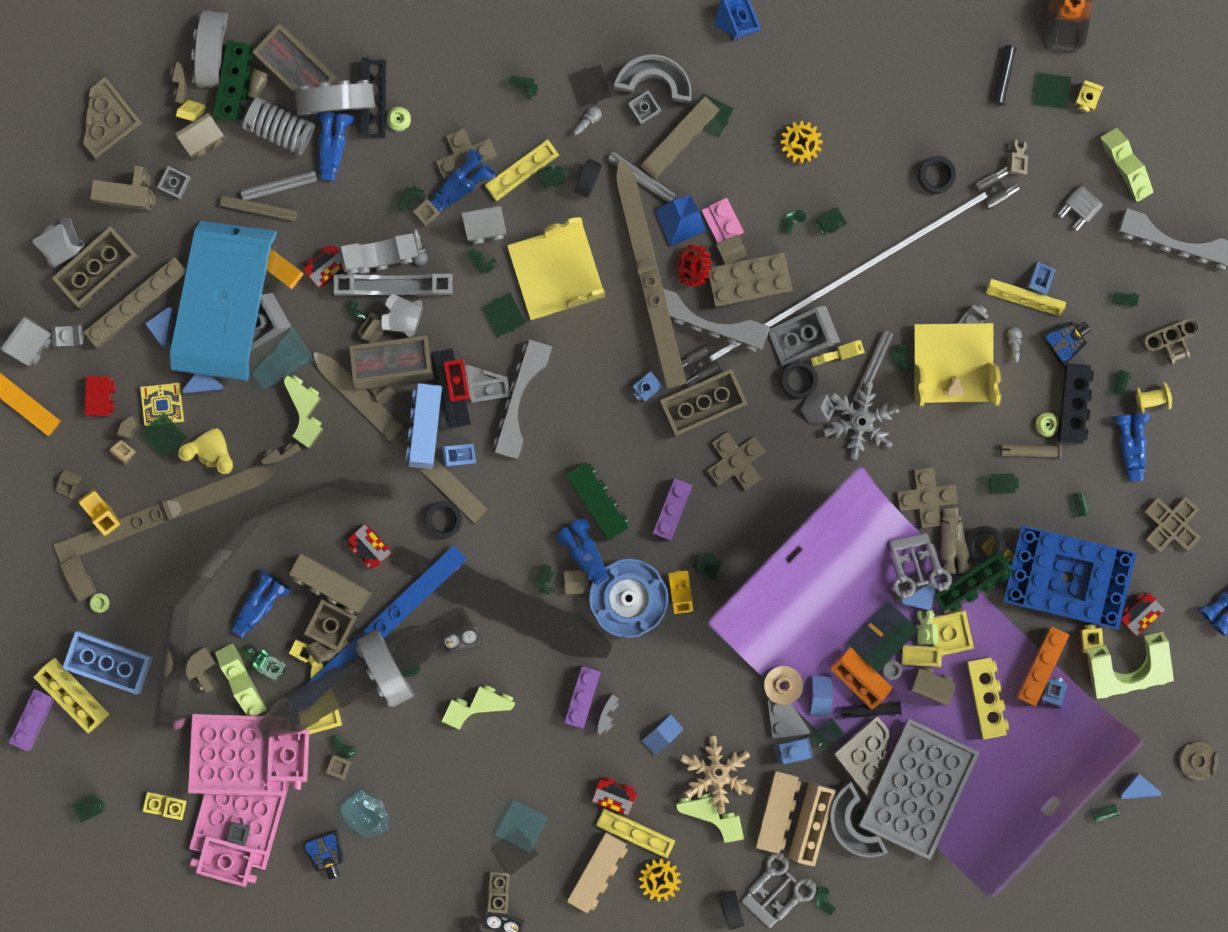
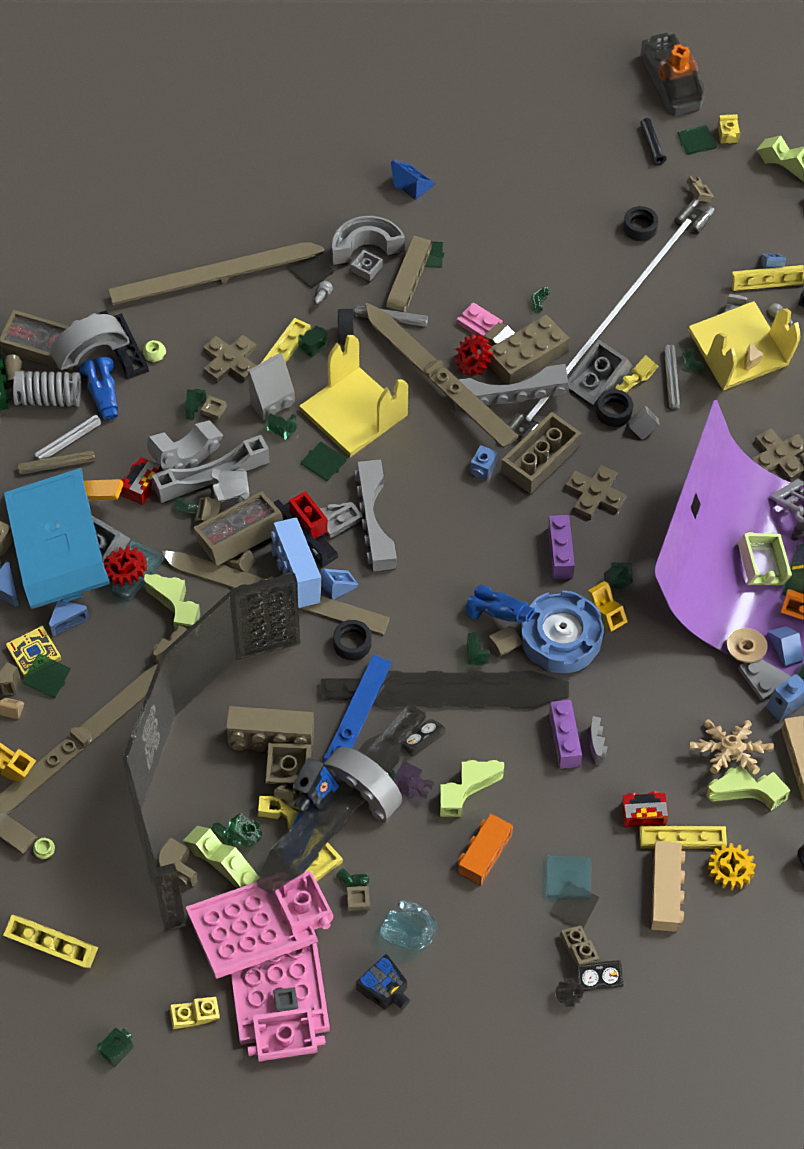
camera: 25 degrees left, 30 degrees down
(32, 719) = (18, 983): medium lavender brick -> none
(107, 662) = (76, 894): light blue brick -> none
(210, 449) = (98, 666): light yellow head -> none
(254, 606) = (206, 786): blue piece -> none
(276, 353) = (125, 566): none -> red gear
(340, 660) = (314, 785): none -> black torso
(369, 546) = (292, 689): brick -> none
(422, 257) = (225, 445): light grey bar -> none
(430, 680) = (410, 780): none -> clear purple brick
(458, 185) = (232, 373): blue piece -> none
(463, 771) = (484, 848): none -> orange brick
(494, 51) = (217, 271): none -> dark tan piece
(522, 83) = (253, 284): clear green bracket -> none
(597, 501) = (489, 566): dark green brick -> none
(662, 734) = (658, 740): medium blue slope -> none
(680, 220) = (442, 332): blue slope -> none
(789, 147) = (514, 241): yellow gear -> none
(830, 221) = (572, 285): clear green brick -> none
(845, 607) = (764, 559): none -> yellowish green window
(855, 415) = (685, 416): light grey piece -> none
(1082, 204) = (772, 201): light grey piece -> none

